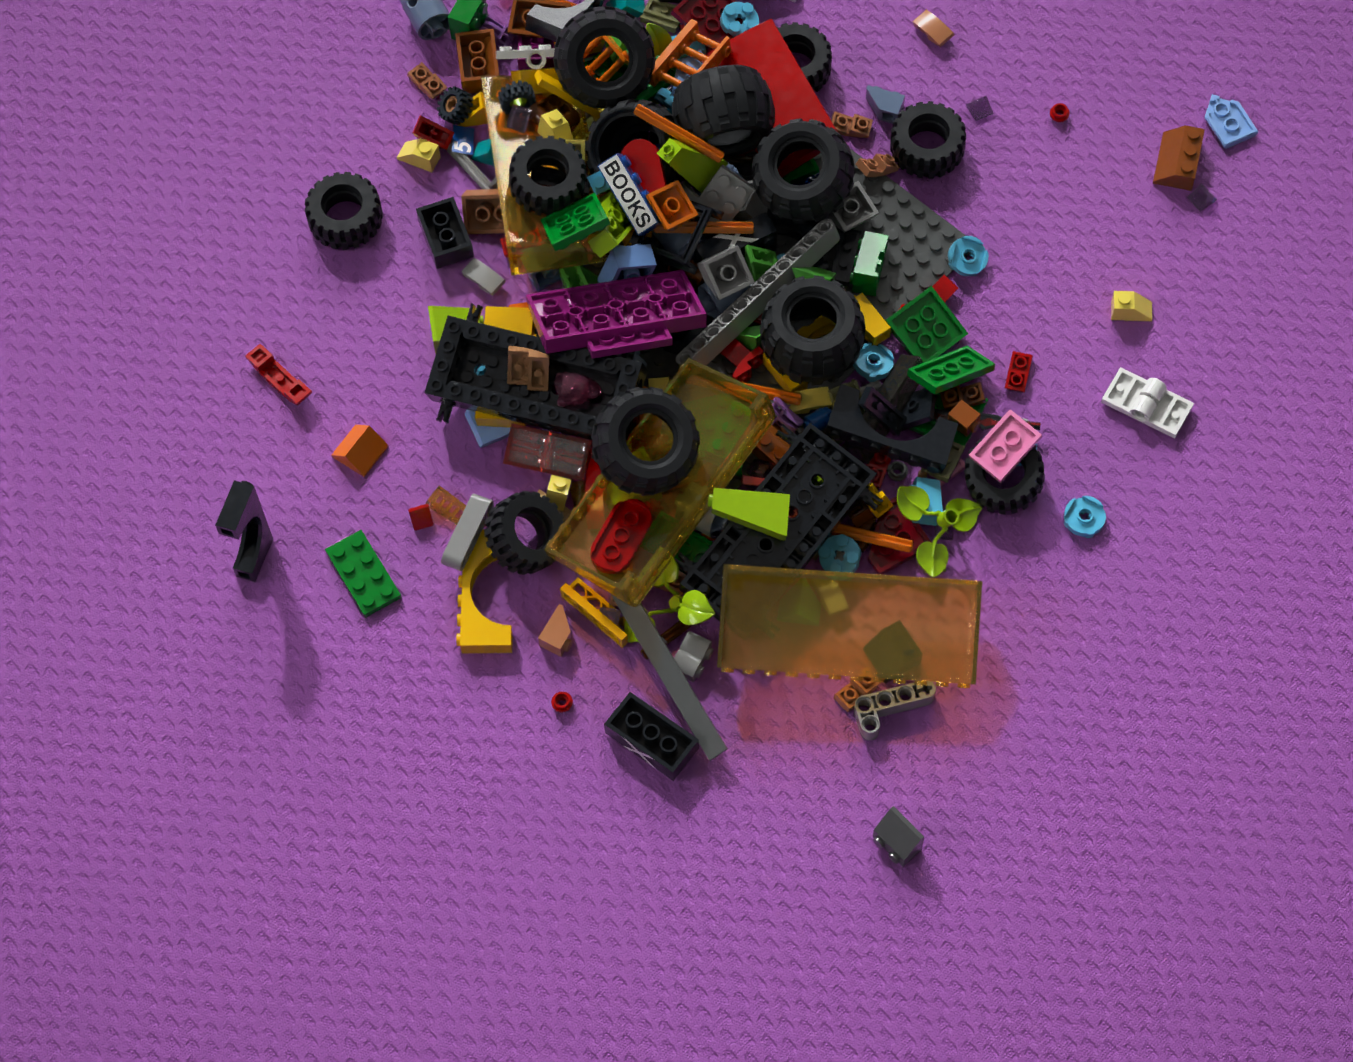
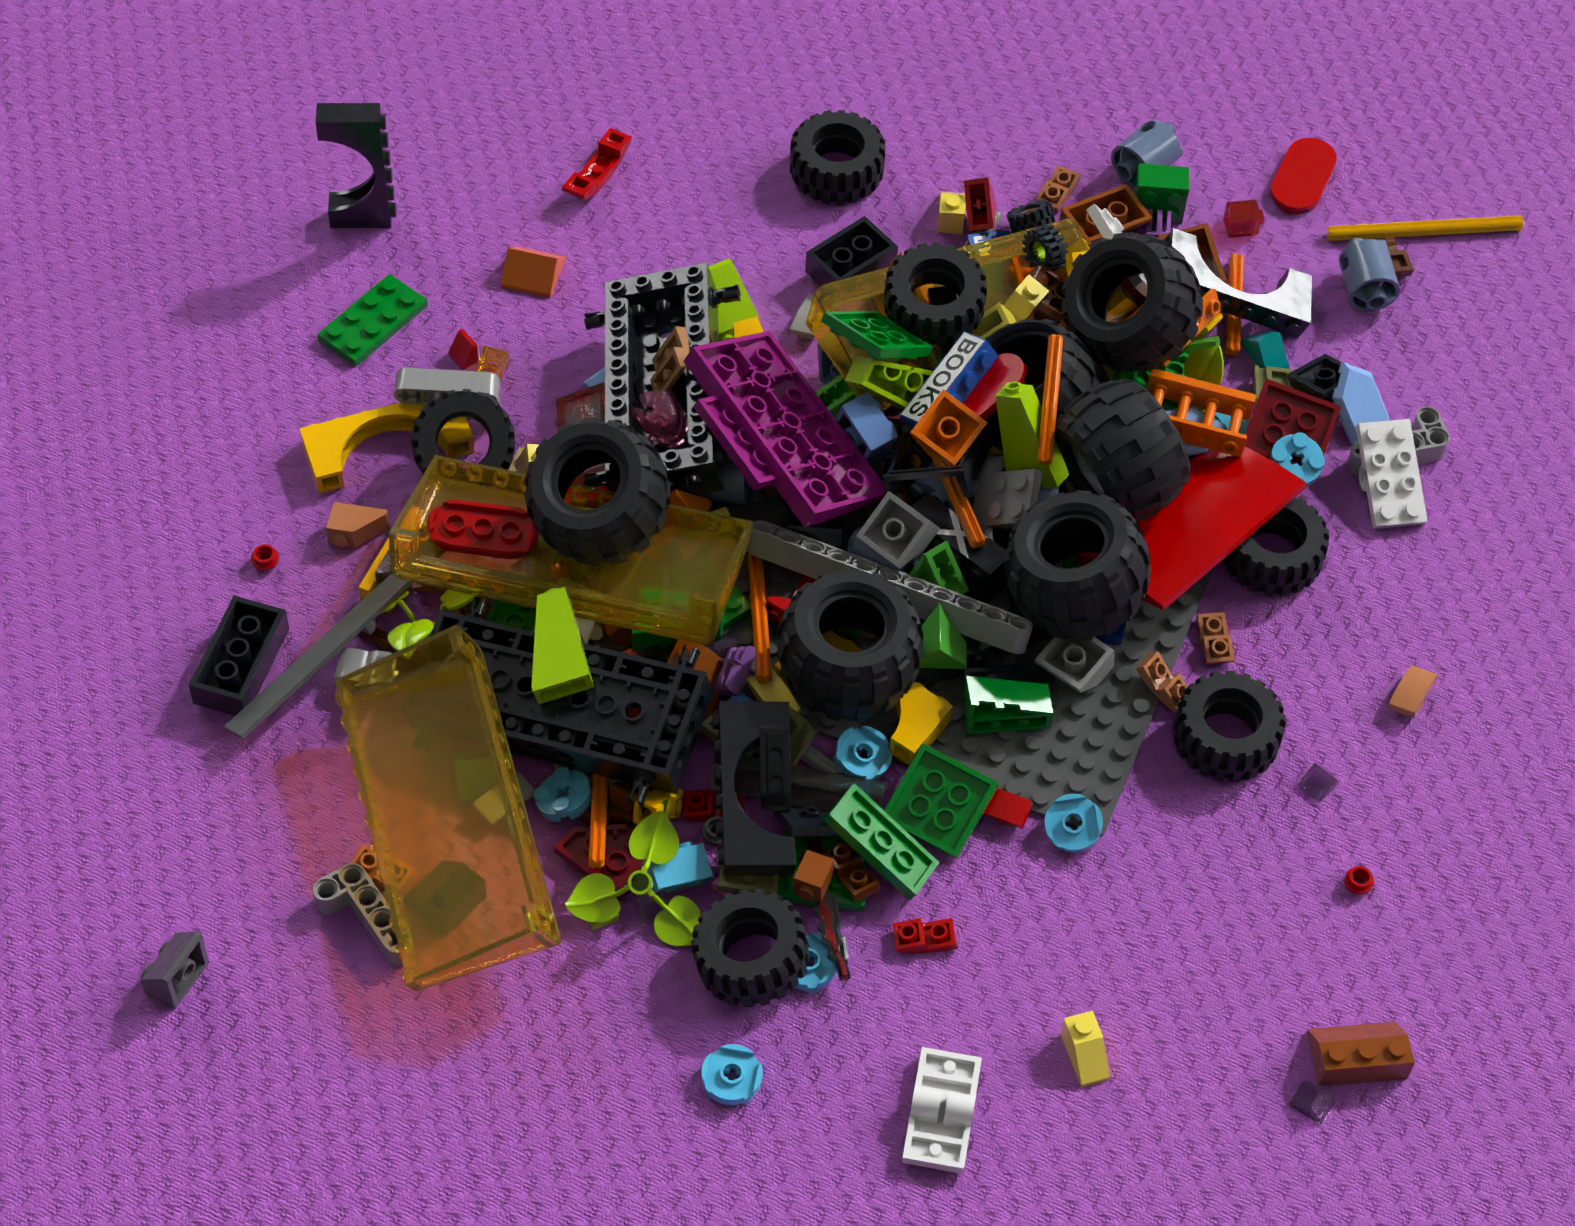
camera: 65 degrees right, 10 degrees down
(519, 118) = (1020, 263): slope -> none
(885, 103) = (1266, 664): sand blue slope -> none
(1005, 446) = (772, 920): bright pink plate -> none
(1229, 121) = (1456, 1104): light blue tile -> none

